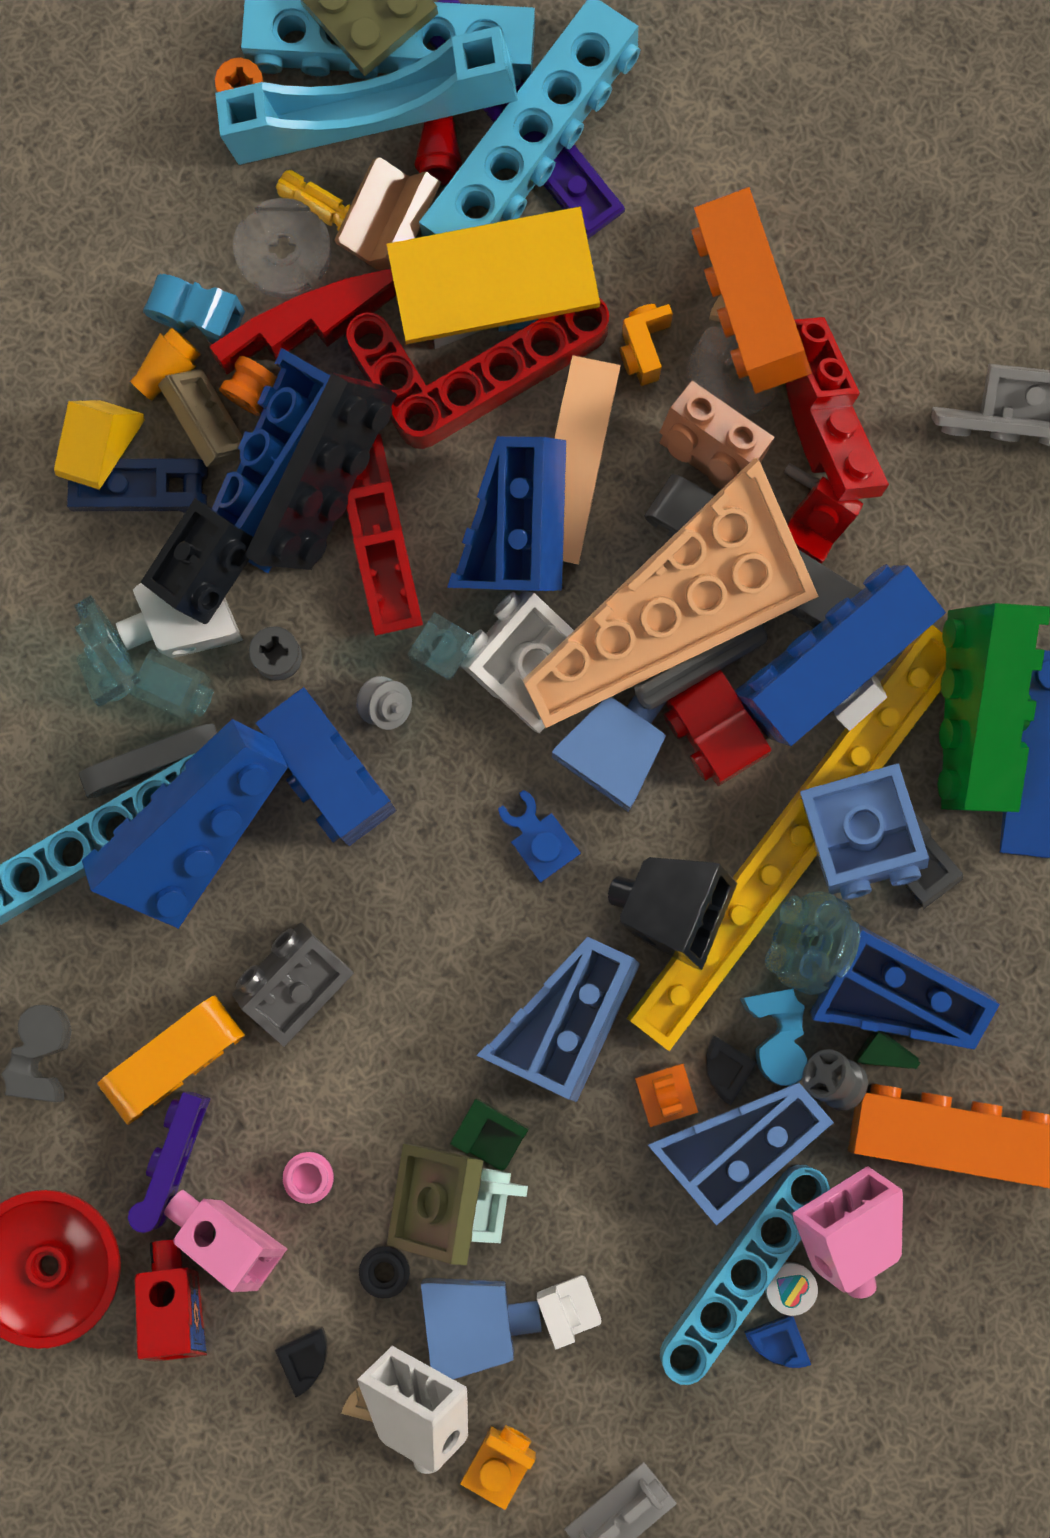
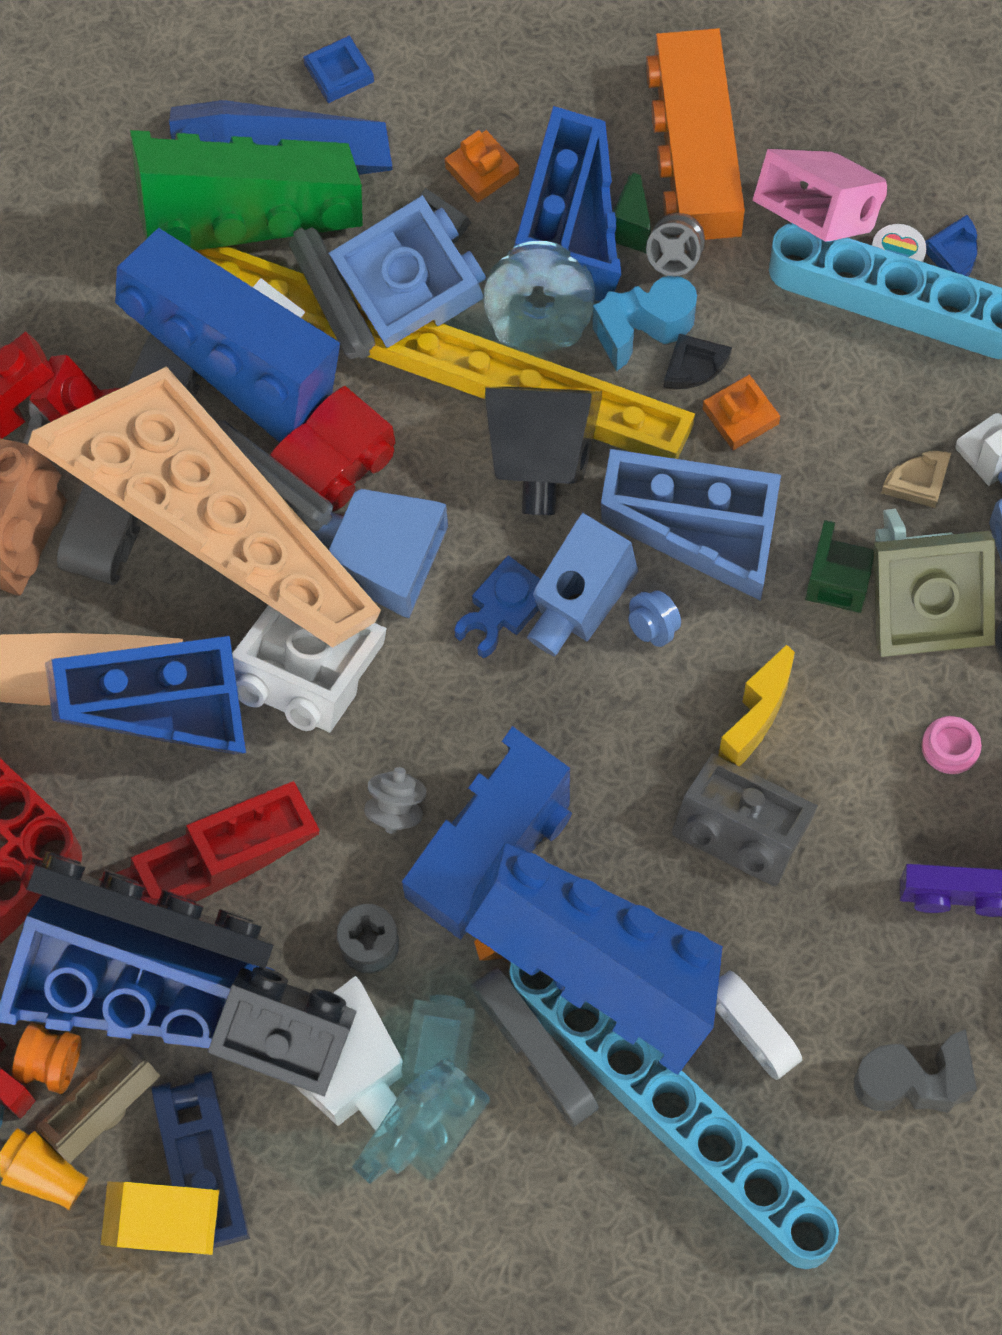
camera: 105 degrees left, 15 degrees down
(115, 939) = (756, 1026): none -> white beam
(170, 1058) = (875, 922): light orange beam -> none
(390, 1034) = (763, 697): none -> yellow slope
(441, 647) = (315, 749): clear light blue bracket -> none
(487, 959) = (654, 617): none -> medium blue plate
(535, 916) = (588, 563): none -> medium blue torso
(560, 1233) = (918, 478): none -> tan tile
(741, 1149) = (774, 316): medium blue wedge -> none
(861, 759) = (331, 293): none -> dark grey axle
(979, 933) = (481, 165): none -> orange tile

